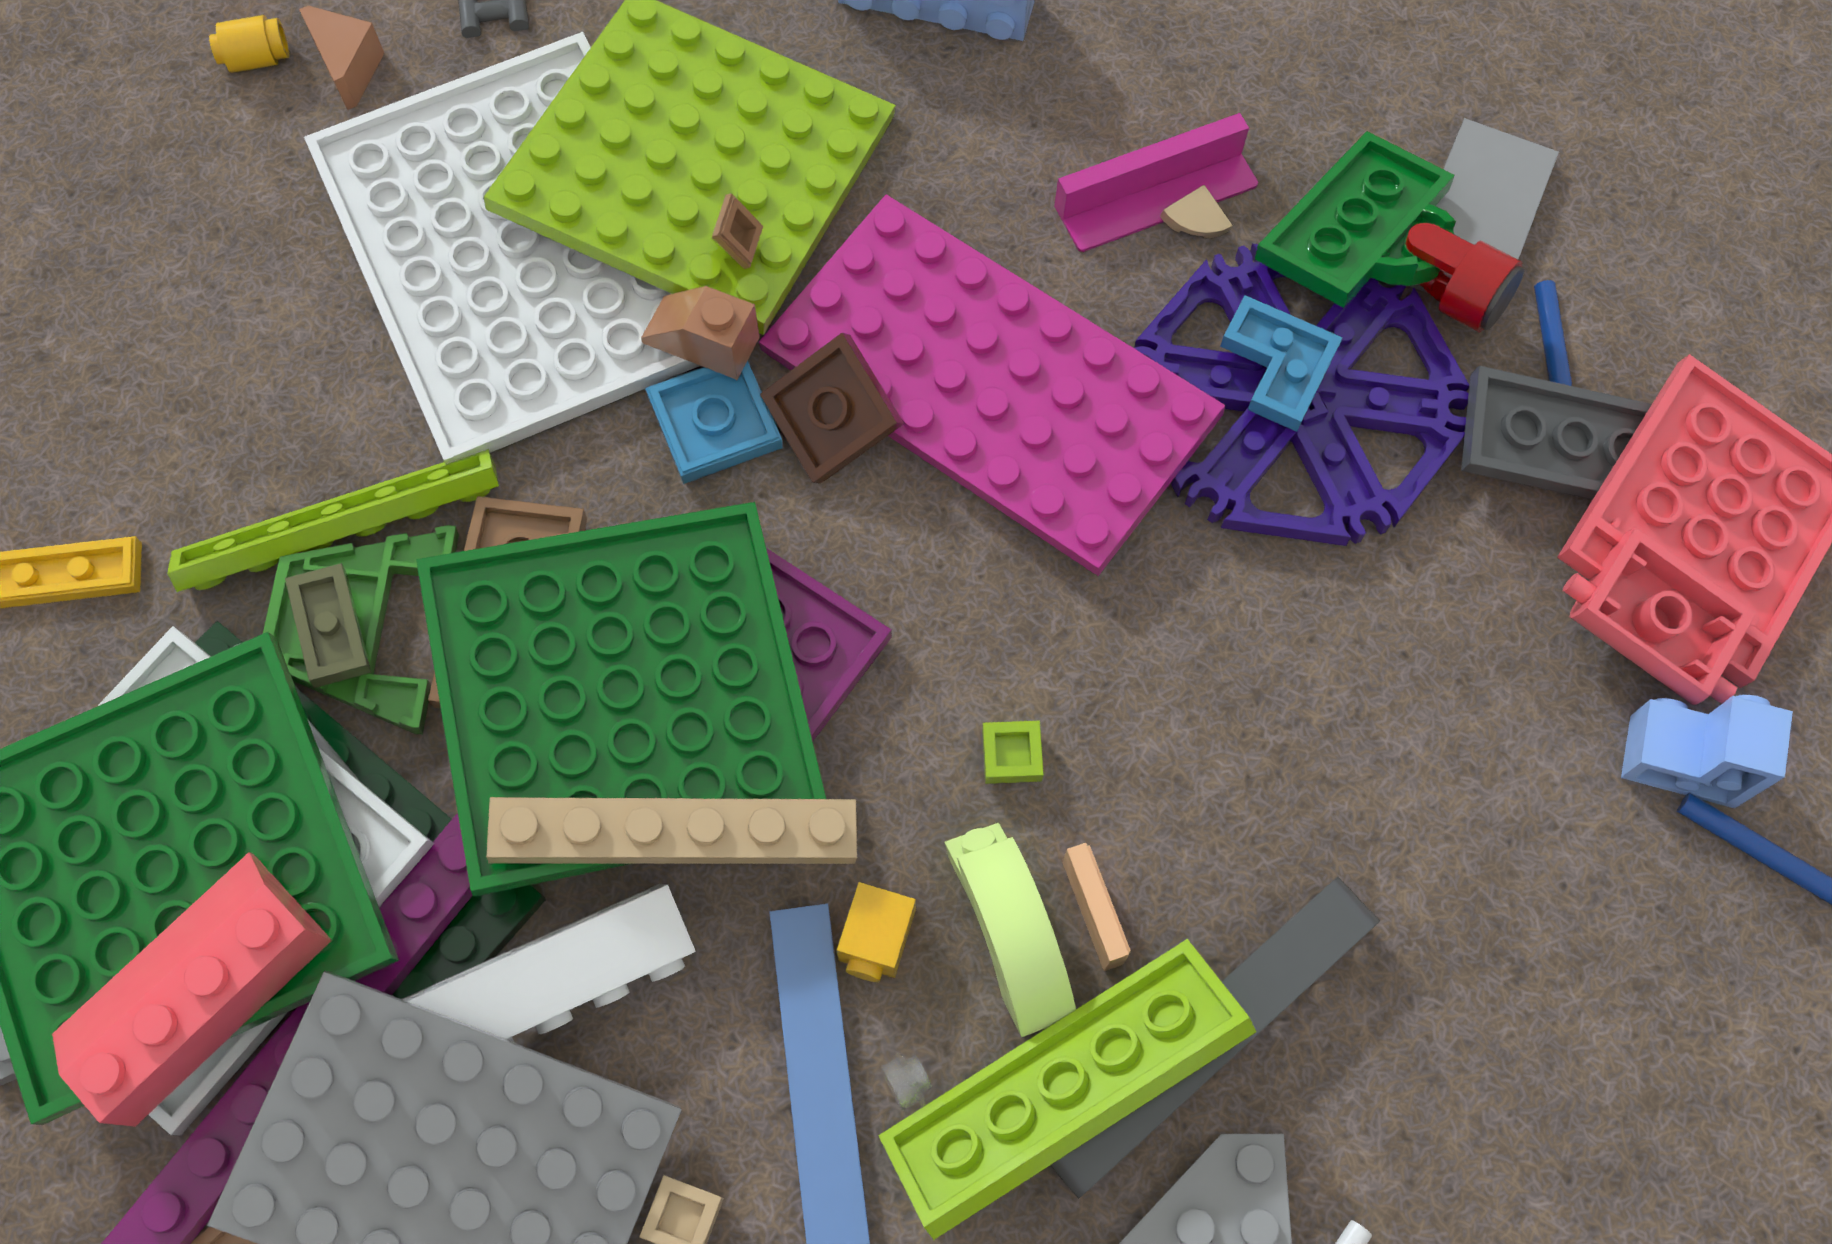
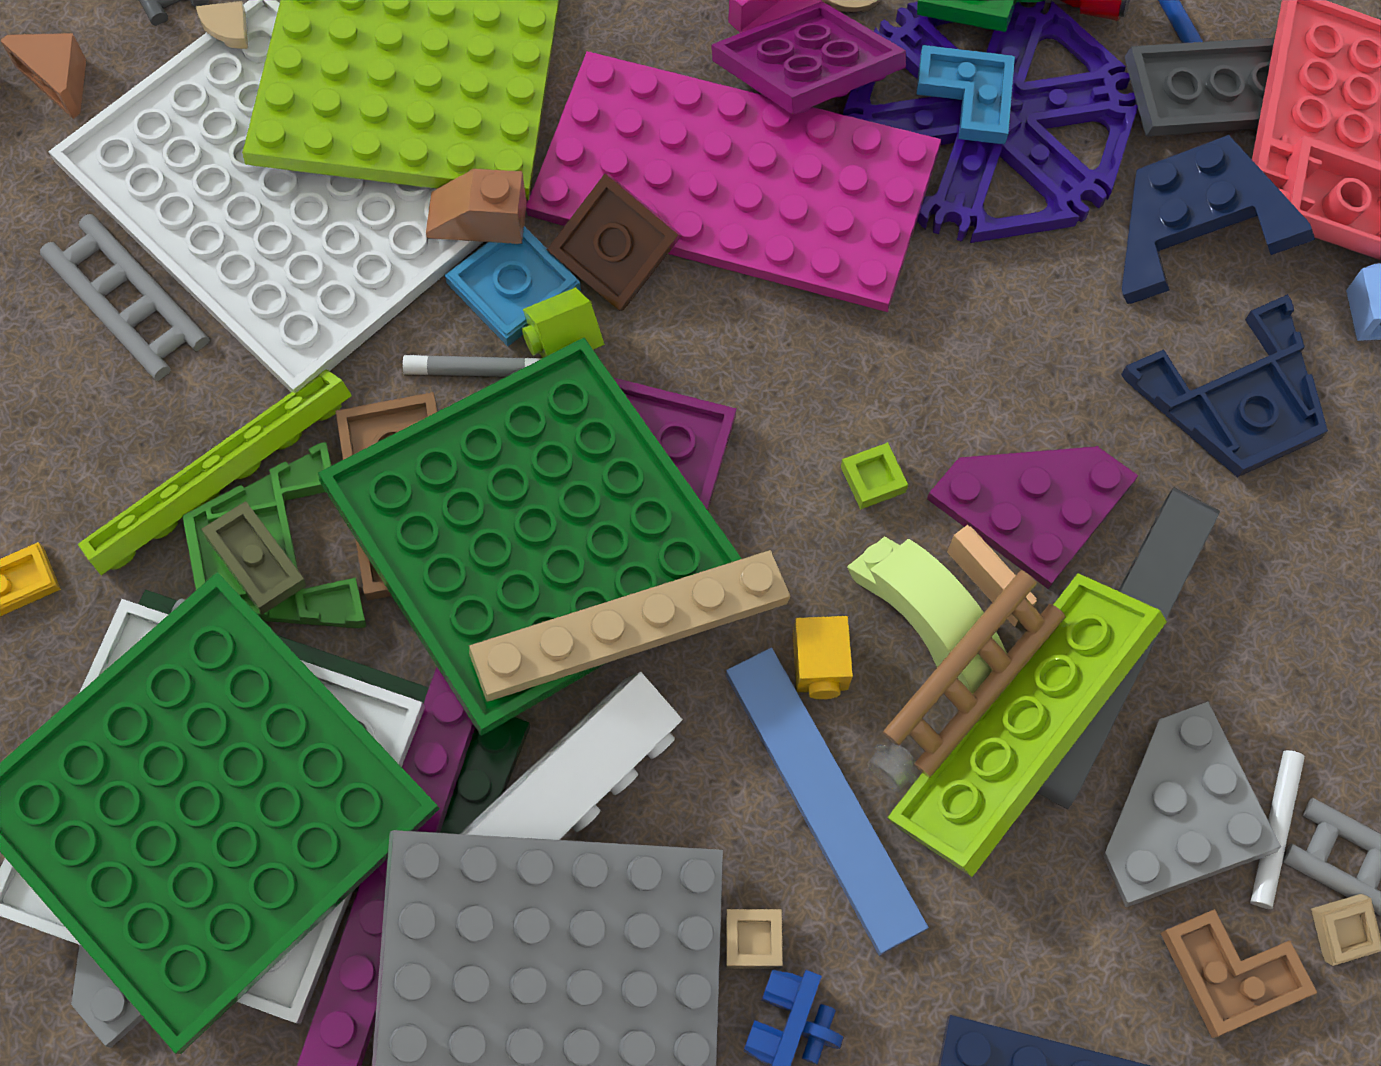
camera: 20 degrees left, 0 degrees up
(185, 994) = (273, 891): coral slope -> none
(307, 335) = (123, 323): none -> light grey bar
(528, 56) = (225, 23): none -> tan tile
(630, 490) = (464, 365): none -> light grey bar
(737, 231) = (477, 117): medium nougat slope -> none
(741, 477) = (560, 323): none -> lime brick
(989, 1007) = (945, 681): none -> medium nougat bar
(1116, 271) = (808, 57): none -> magenta plate
(1179, 841) = (1034, 503): none -> magenta plate
(1461, 820) = (1251, 411): none -> dark blue wing
(1489, 556) = (1197, 196): none -> dark blue wing

